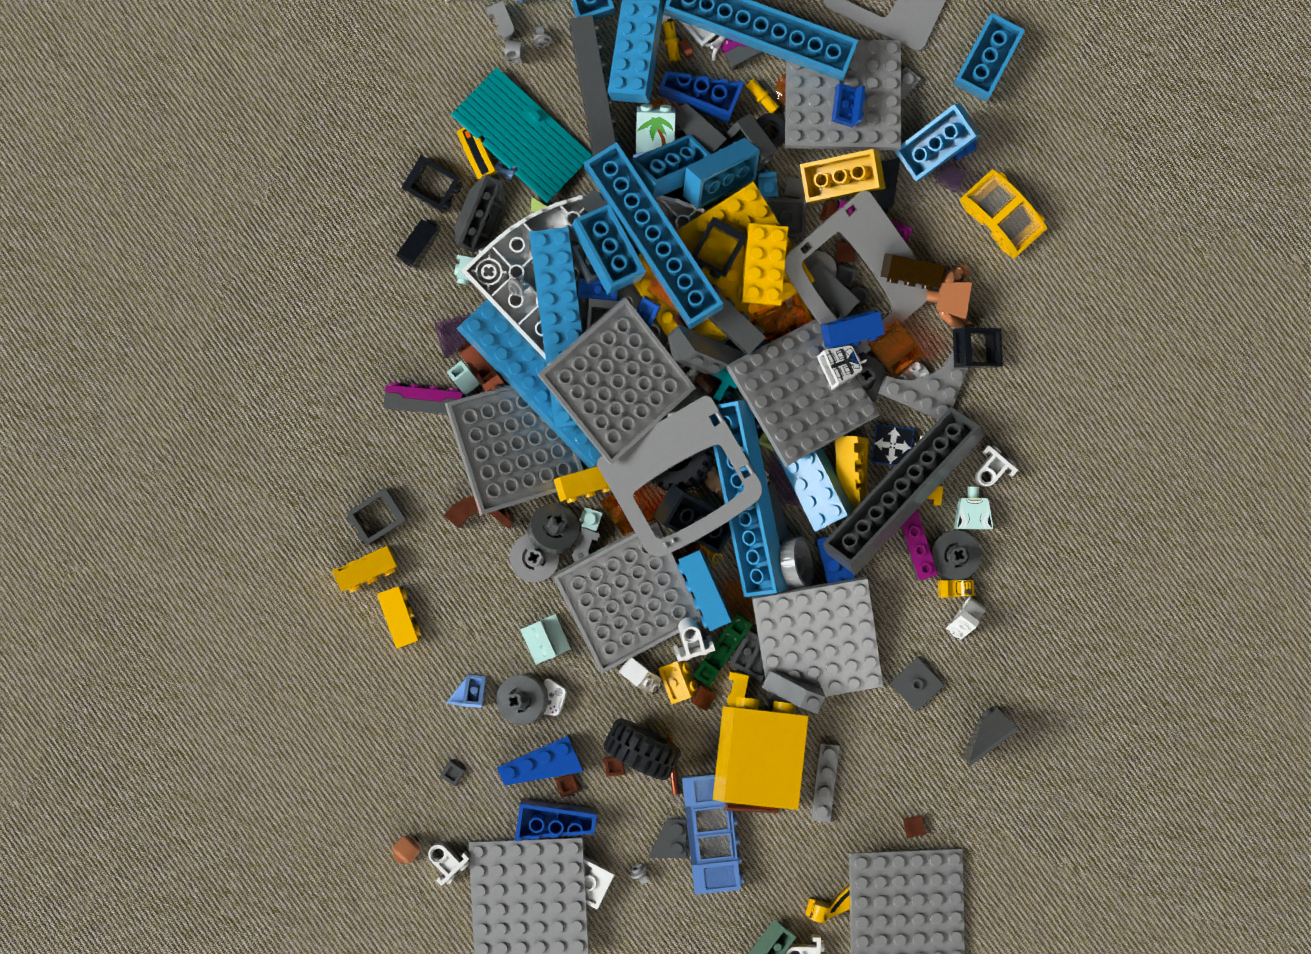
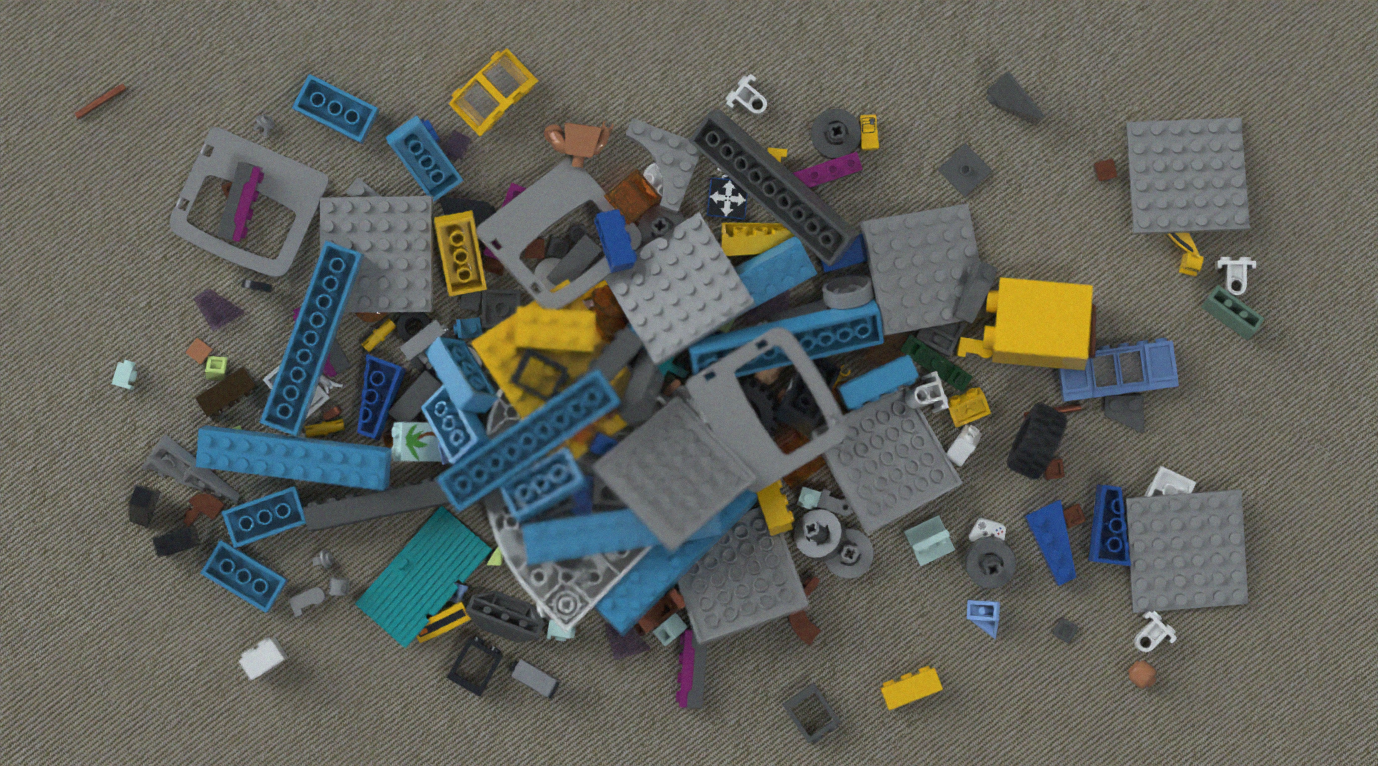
camera: 90 degrees left, 0 degrees up
(366, 569) = (865, 722): yellow wedge -> none
(639, 871) = (1158, 442): light grey plate -> none
(703, 698) = (984, 381): copper tile -> none
(825, 782) = (1064, 259): light grey plate -> none
(841, 364) = (650, 251): white torso -> none
(848, 105) = (389, 249): blue bracket -> none
(912, 271) = (555, 182): dark brown brick -> none
(963, 351) = (629, 130): black window -> none
(966, 618) = (898, 121): white pin -> none
(973, 512) = (792, 116): light aqua torso -> none

